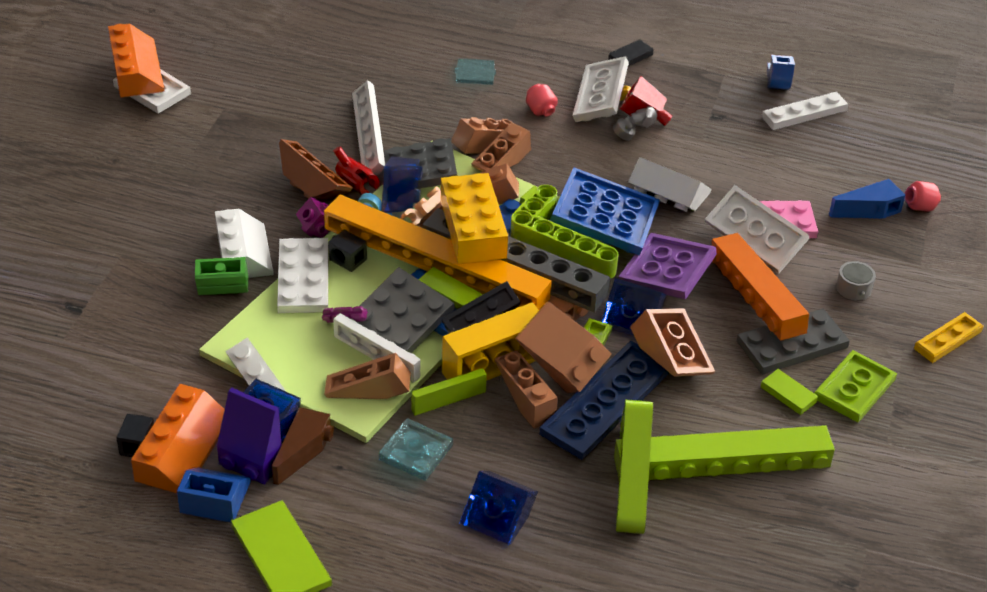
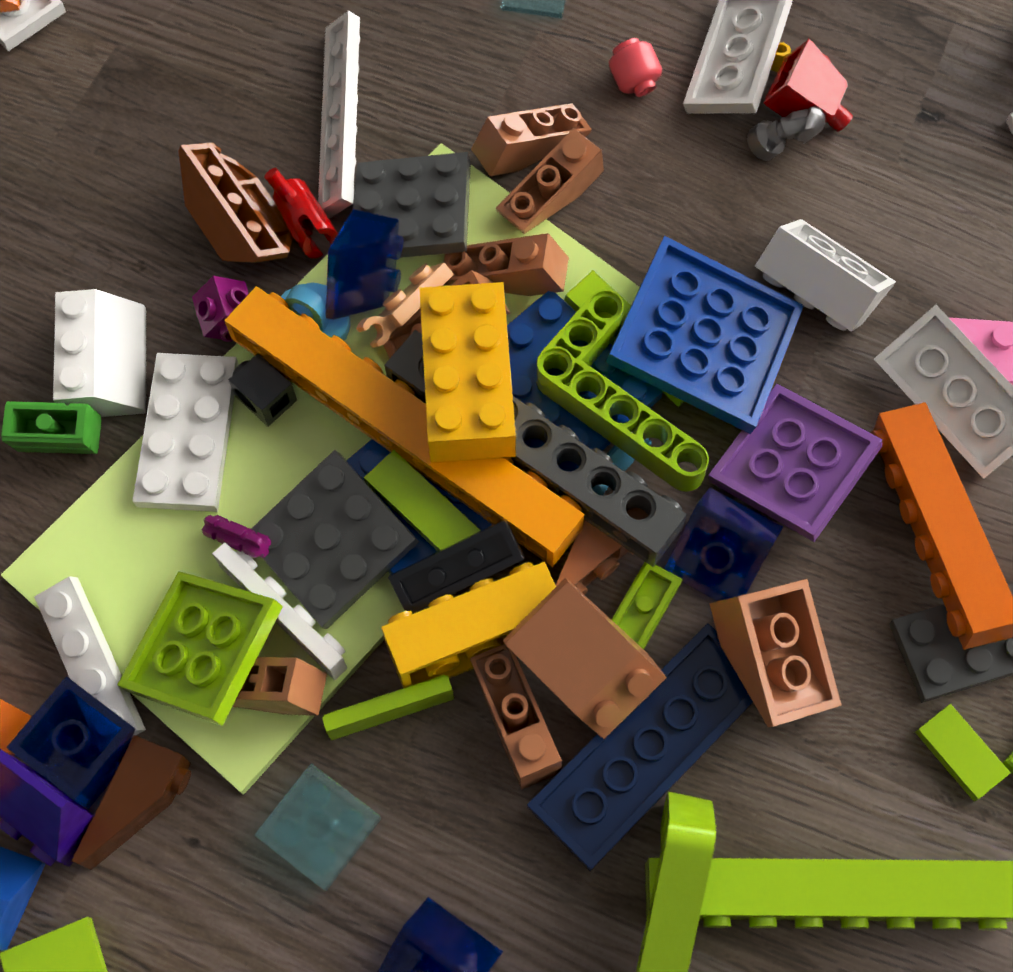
camera: 10 degrees right, 25 degrees up
(333, 361) = (200, 647): none -> lime plate

